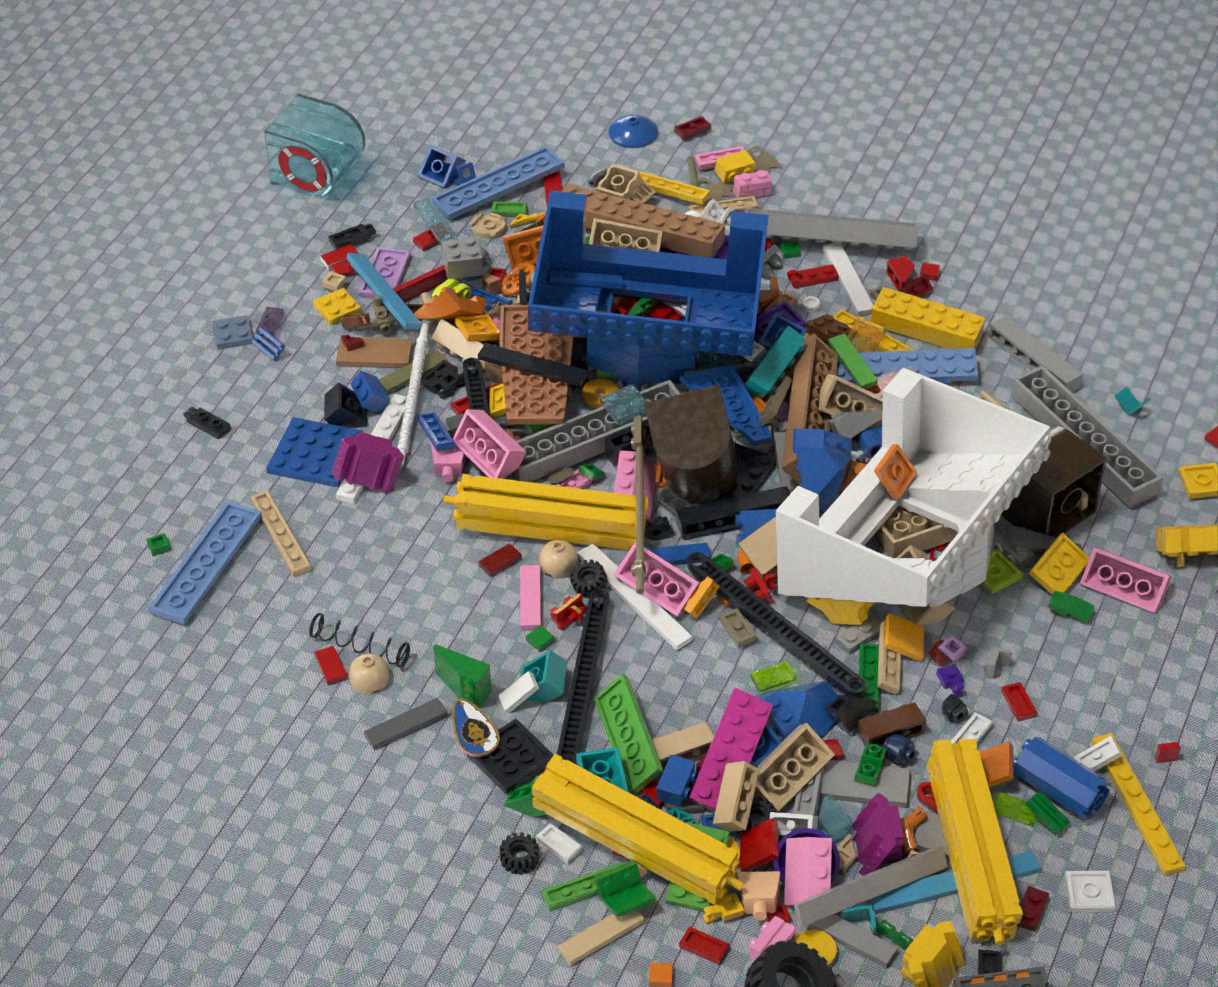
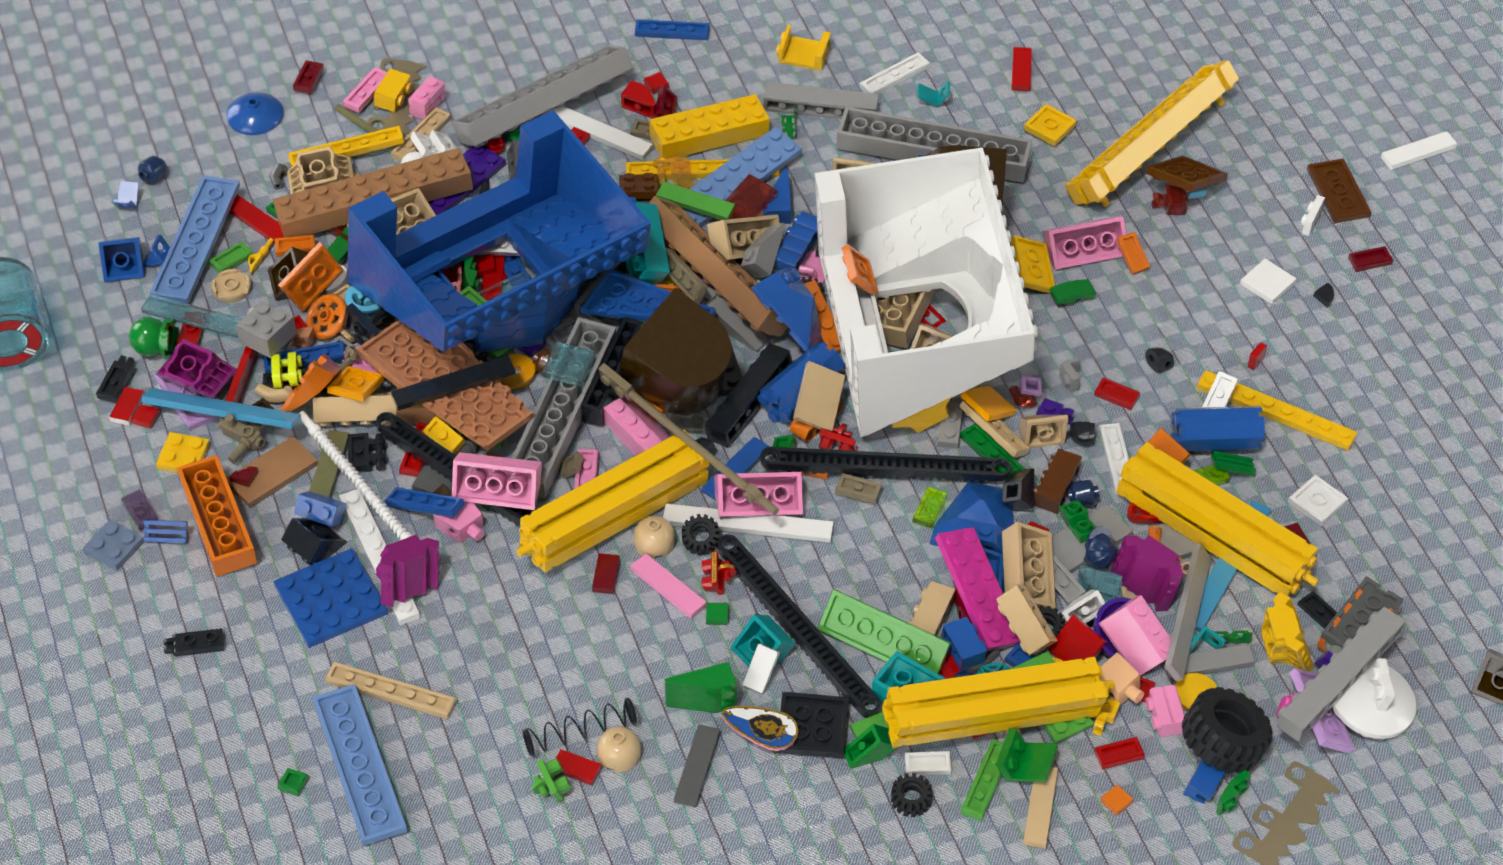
camera: 45 degrees left, 5 degrees up
(300, 660) = (556, 787): none -> bright green hips
(304, 353) = (216, 515): none -> orange brick
(333, 281) = (153, 432): tan plate -> none
(355, 319) = (226, 450): copper beam -> none
(398, 258) = (196, 369): none -> magenta slope
(399, 224) = (152, 336): none -> green tile
(491, 132) = (127, 195): none -> bracket
(524, 125) = (152, 169): none -> dark blue head
(591, 472) = (592, 443): green tile -> none
(701, 598) = (809, 475): light orange plate -> none
(858, 791) = (1100, 548): none -> dark blue piece
(919, 682) = (1043, 430): none -> tan slope
(985, 244) = (671, 29): none -> blue tile
(995, 358) = (788, 125): none -> green piece
(1066, 313) = (803, 51): none -> yellow panel
(1083, 700) = (1159, 359): none -> black piece
(1120, 372) = (895, 74): none -> white tile
(1154, 611) = (1133, 253): none -> orange tile

